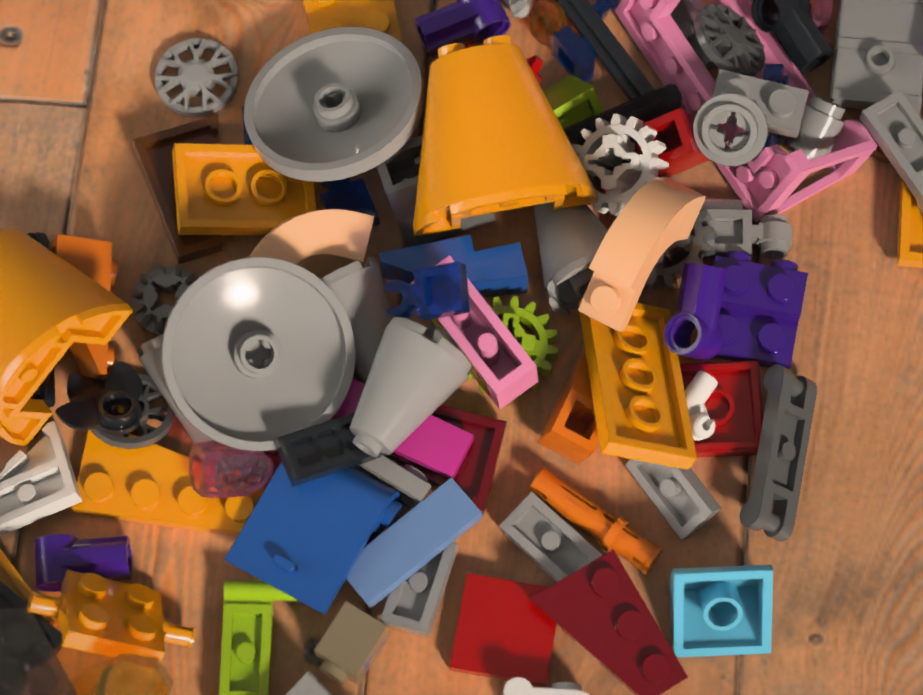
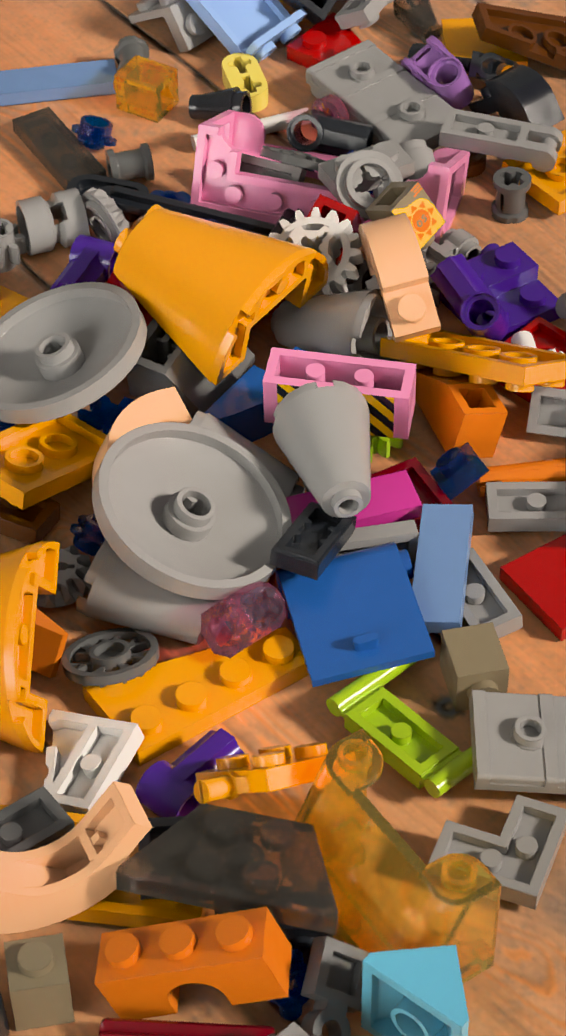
camera: 45 degrees left, 25 degrees down
(97, 402) = (90, 650): black plate -> none
(436, 293) = (292, 361): clear blue plate -> none
(524, 463) = (458, 470): none -> clear blue plate
(729, 184) = (413, 200): none -> brick
(872, 205) = (511, 195): none -> dark grey bush

